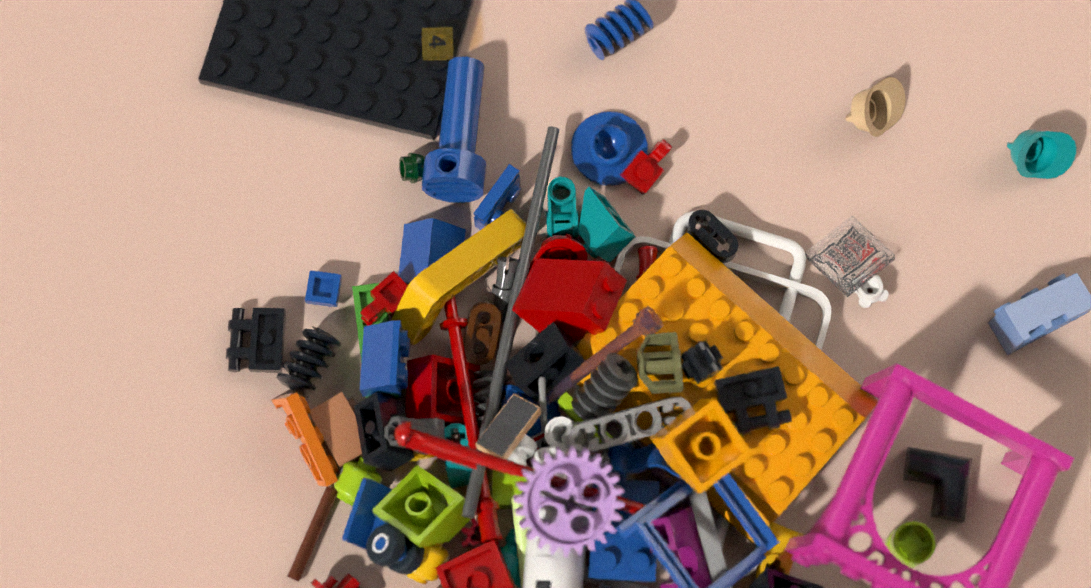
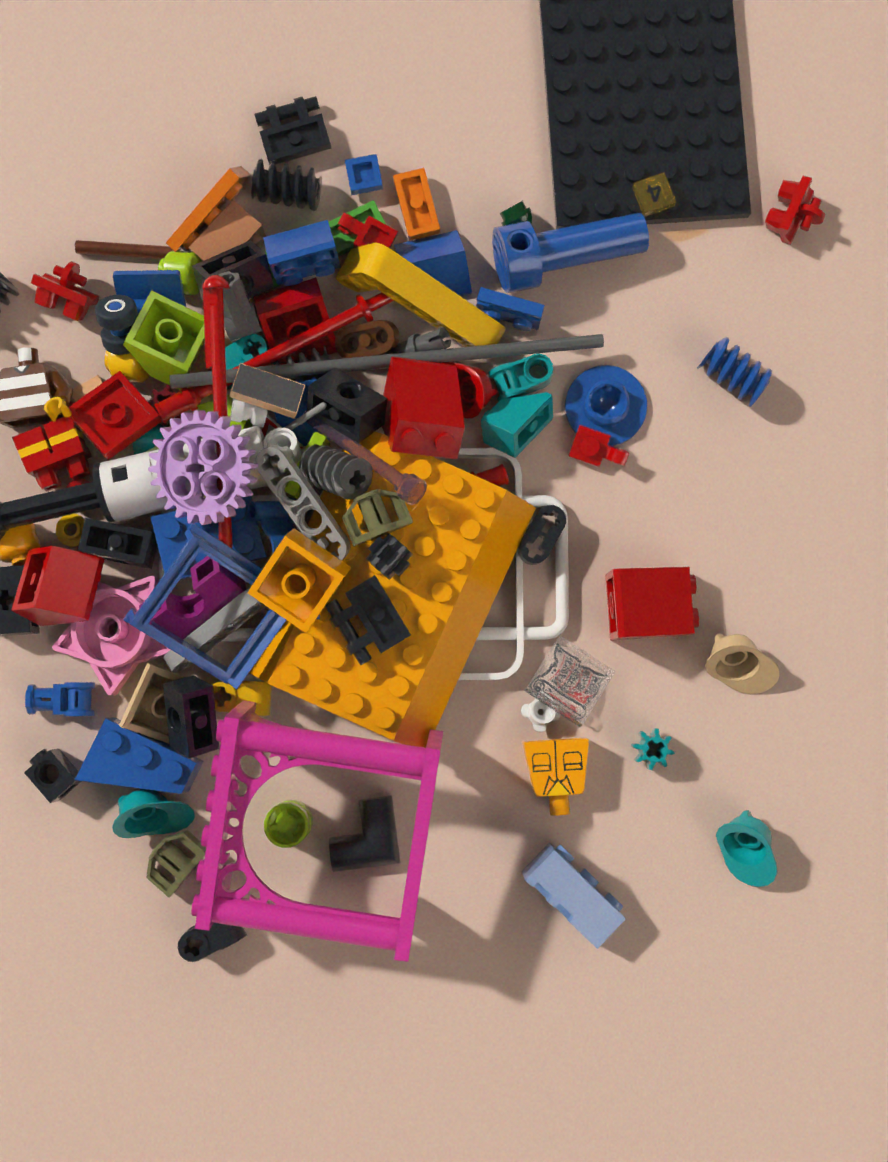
camera: 75 degrees right, 10 degrees up
(368, 251) = (416, 204): none -> orange plate
(802, 166) = (651, 602): none -> red slope
(926, 292) = (557, 770): none -> light orange torso
(934, 197) = (662, 750): none -> teal gear

